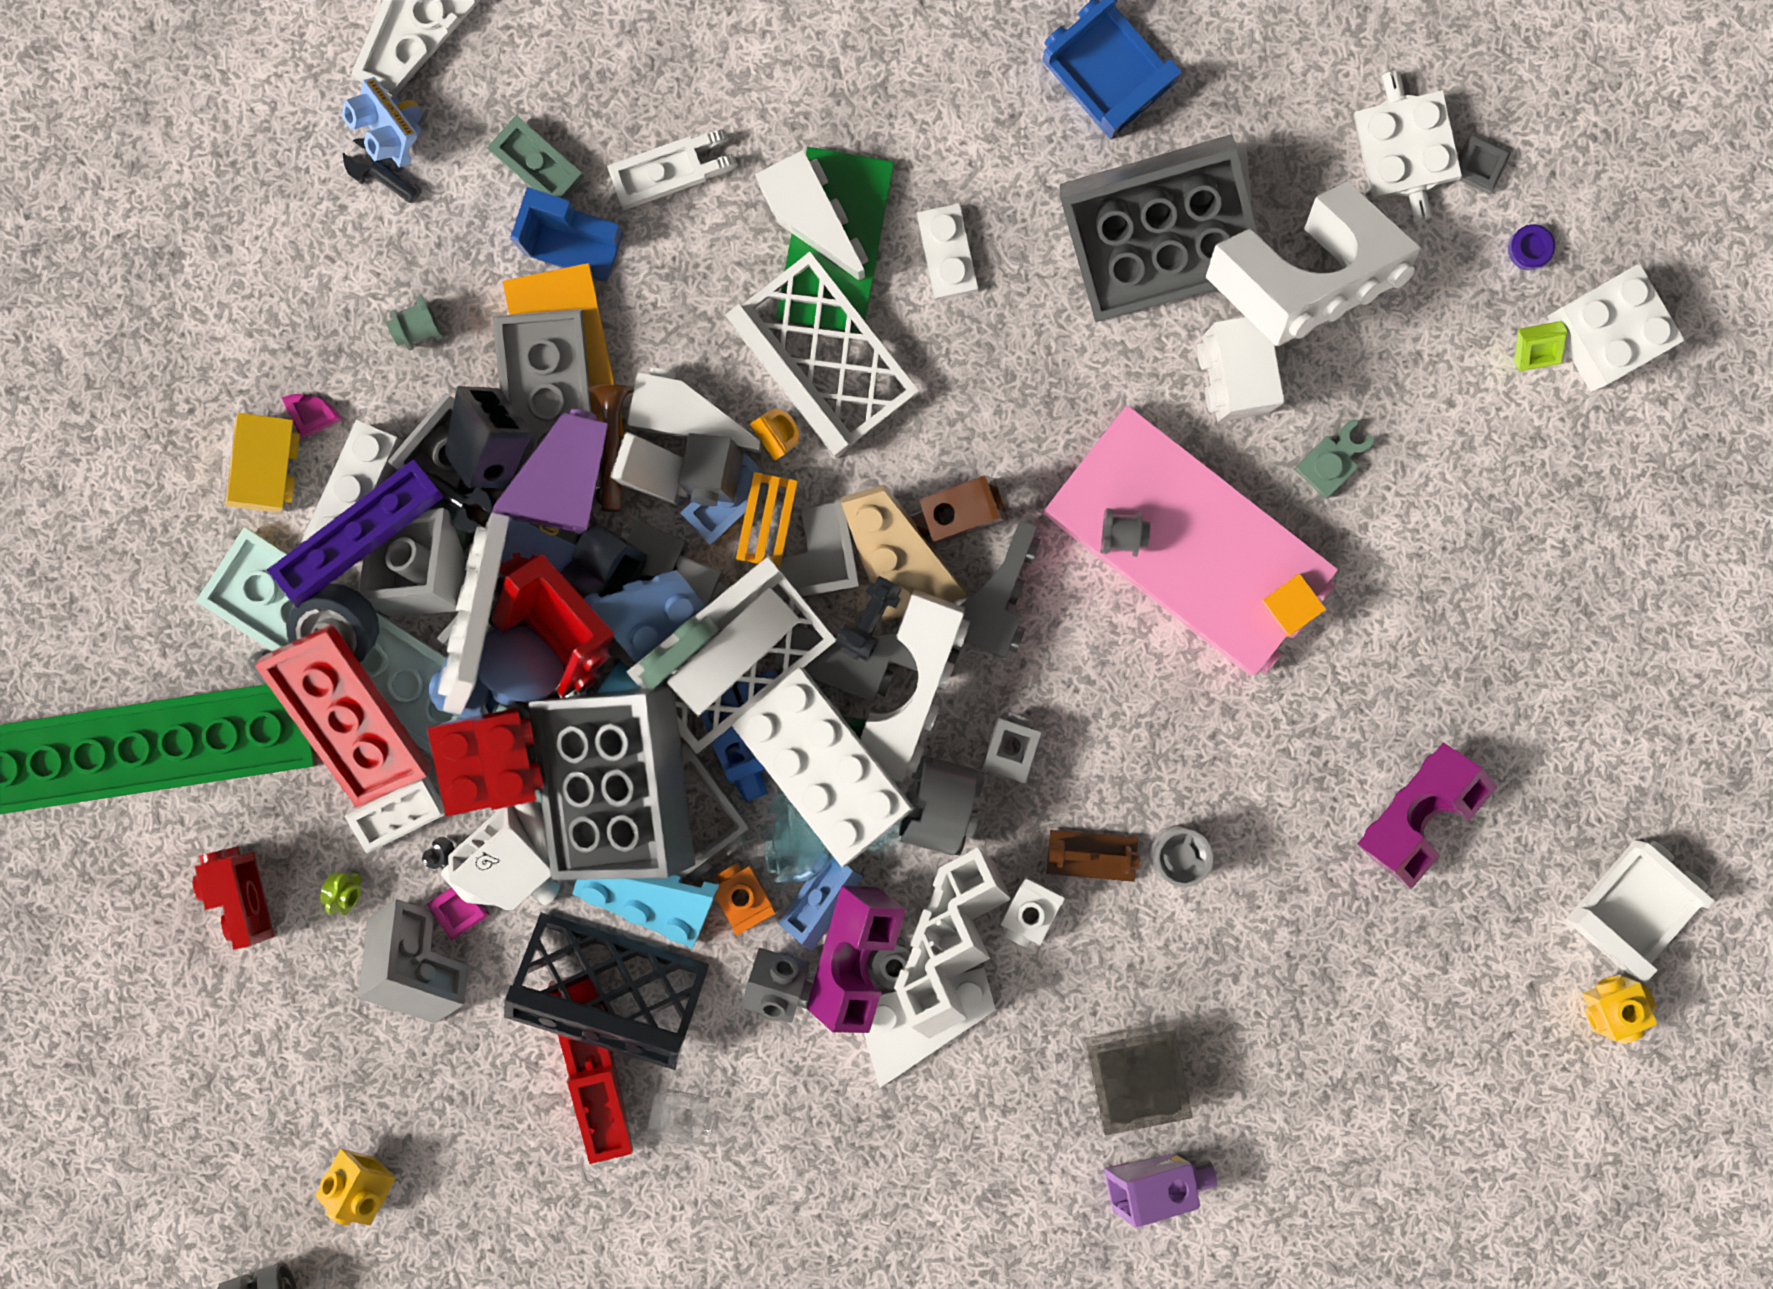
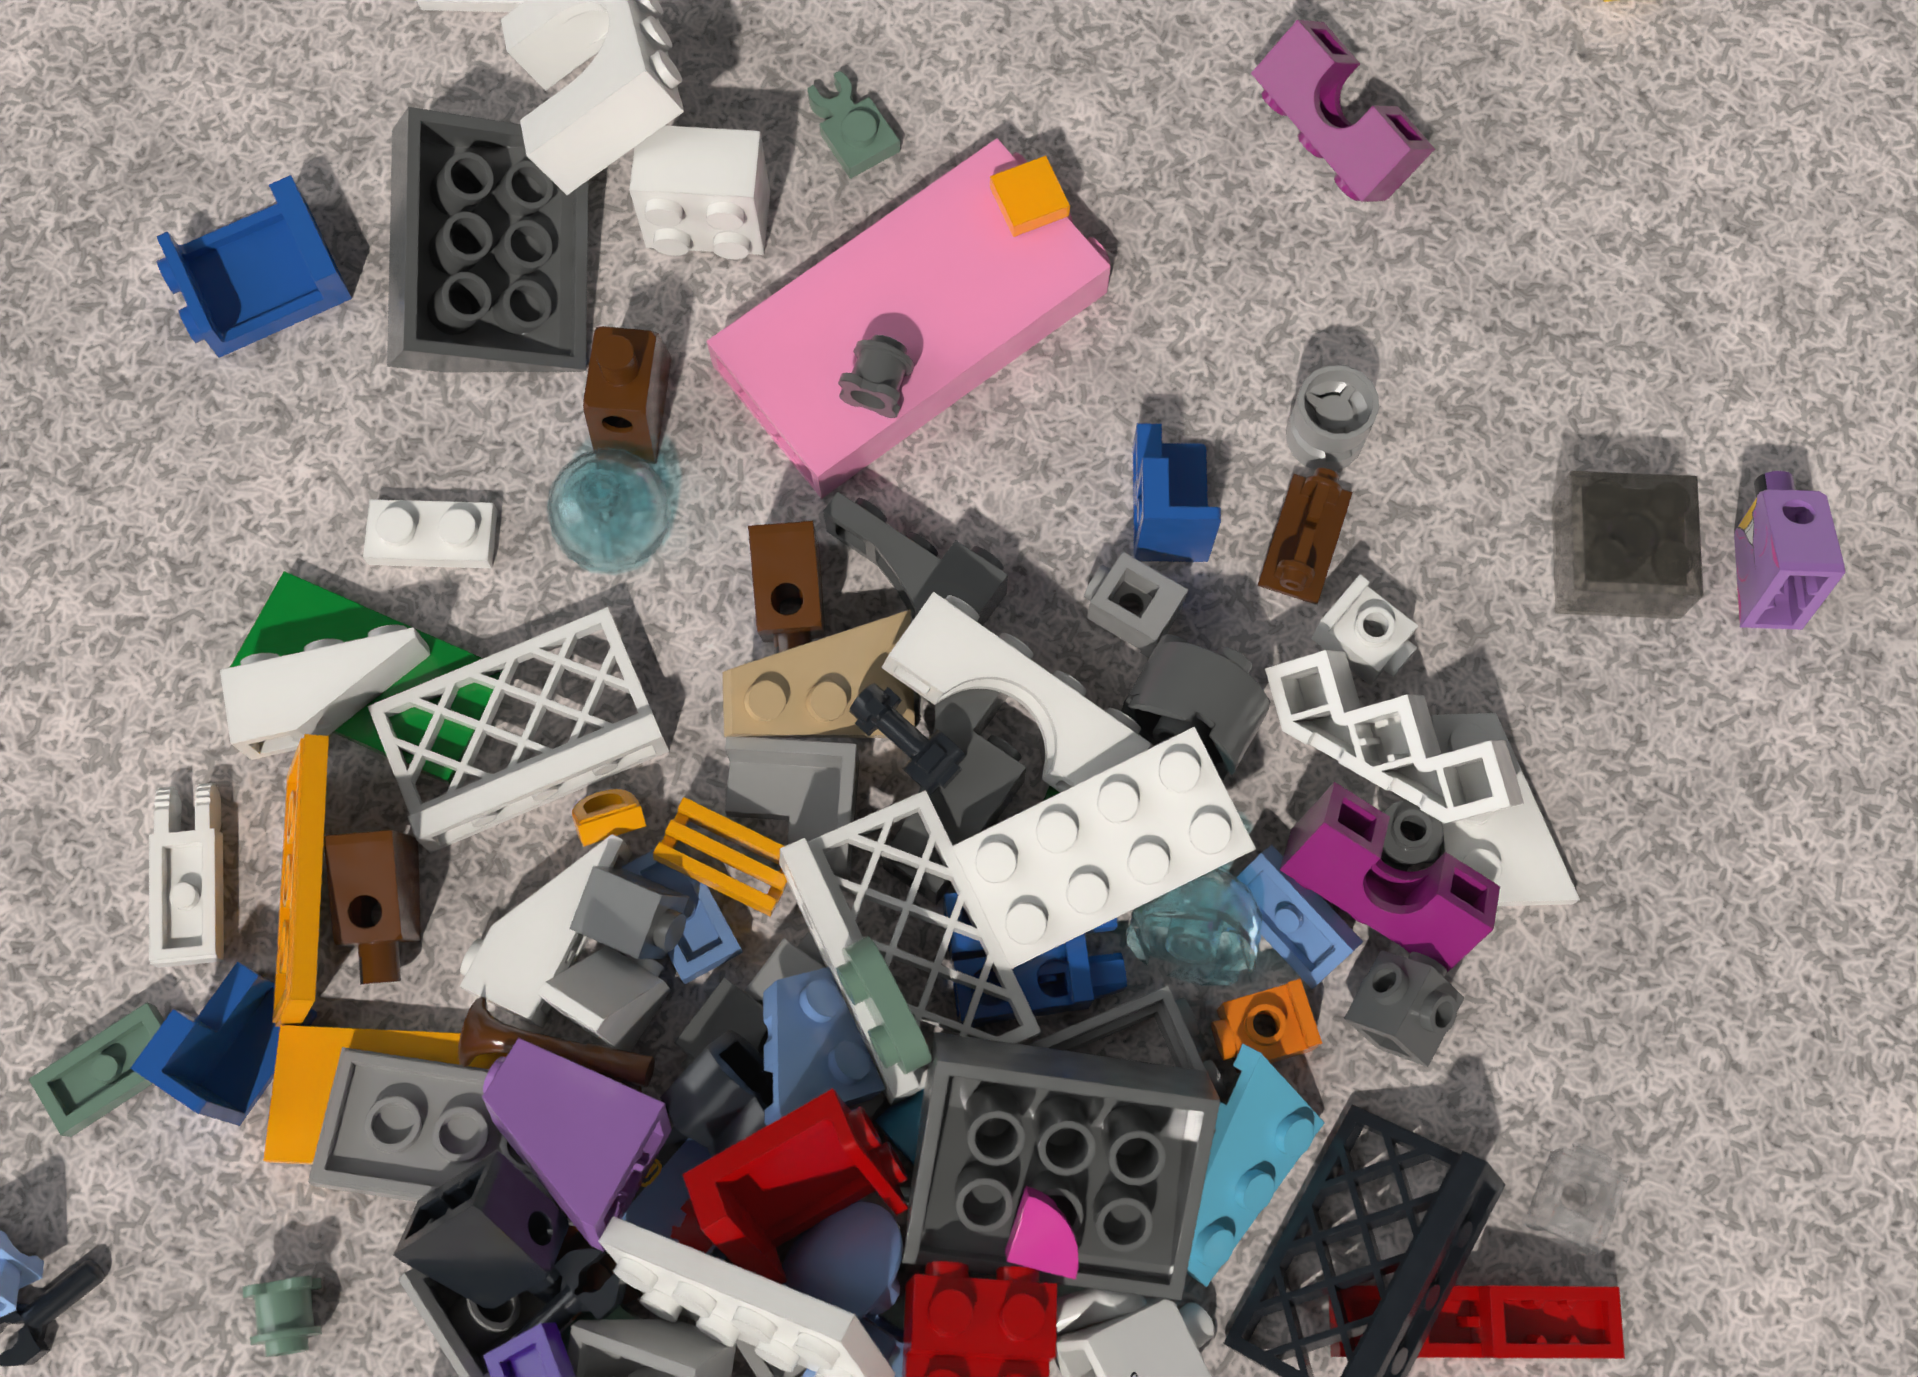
camera: 80 degrees left, 15 degrees down
(561, 785) = (1042, 1237): none -> dark pink tile
(678, 249) = (301, 882): none -> light orange tile
(699, 294) = (368, 871): none -> reddish brown torso
(733, 651) = (907, 930): white slope -> none
(992, 370) = (609, 511): none -> clear light blue cylinder
(1076, 359) = (629, 382): none -> reddish brown torso
(1098, 756) = (1171, 499): none -> blue panel

